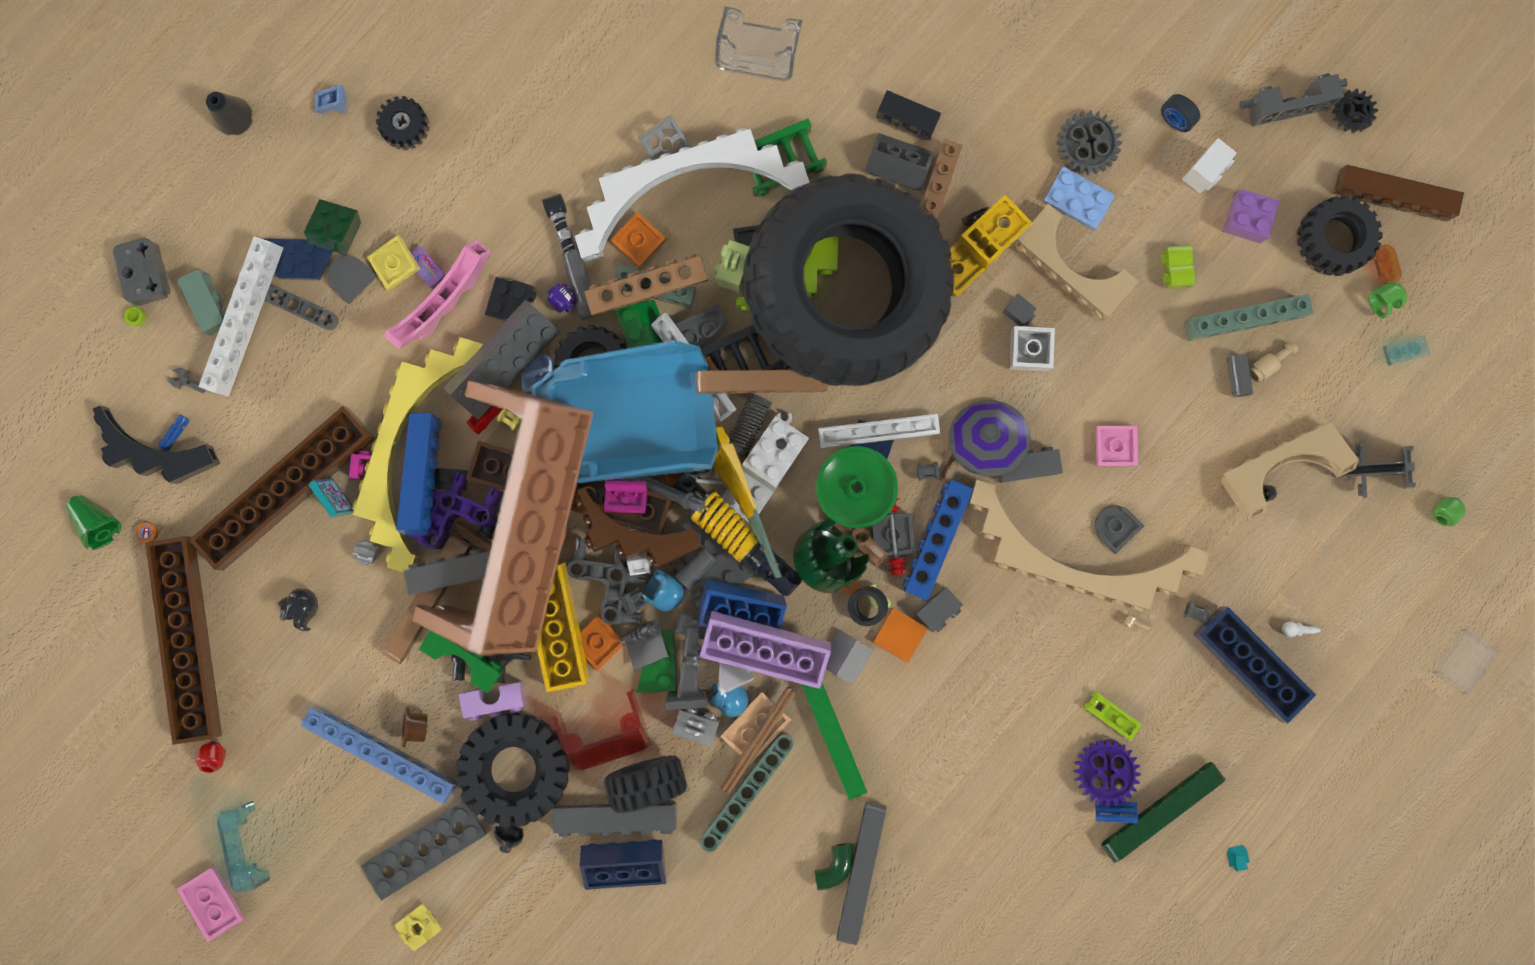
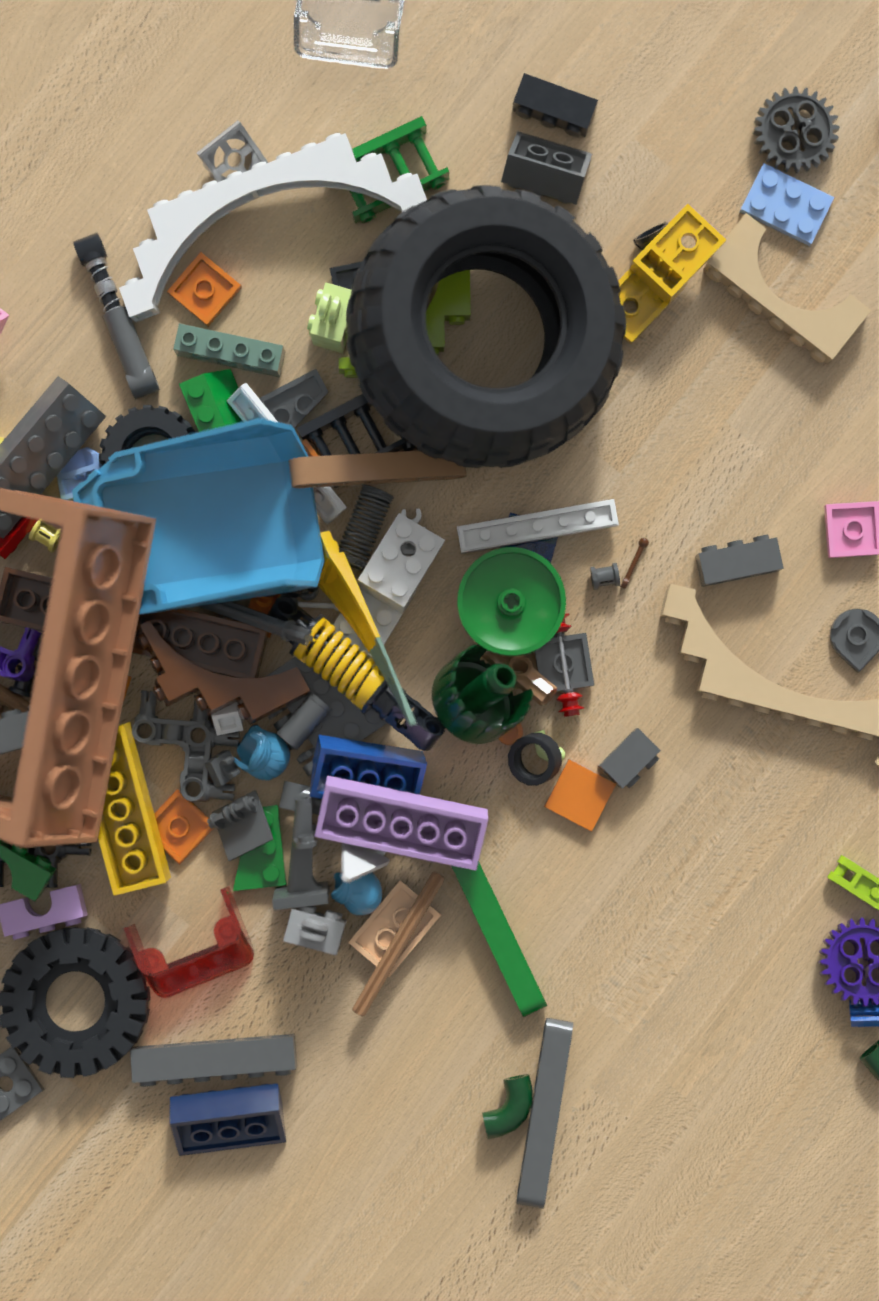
camera: 10 degrees left, 0 degrees up
(507, 297) = (33, 374): black plate -> none
(508, 837) = (73, 1092): black piece -> none
(561, 298) = (106, 371): dark purple head -> none
(599, 306) = (151, 362): medium nougat brick -> none
(625, 496) = (205, 630): dark pink bracket -> none
(645, 784) = (252, 1009): black tyre -> none
(742, 801) = (384, 1027): sand green beam -> none
(847, 656) = (511, 827): light grey slope -> none
(941, 177) = (602, 185): medium nougat brick -> none
(962, 495) = (652, 605): blue brick -> none
(989, 438) = (684, 528): dish -> none
(1020, 311) = (716, 357): dark grey brick -> none
(1031, 348) = (734, 406): white brick -> none

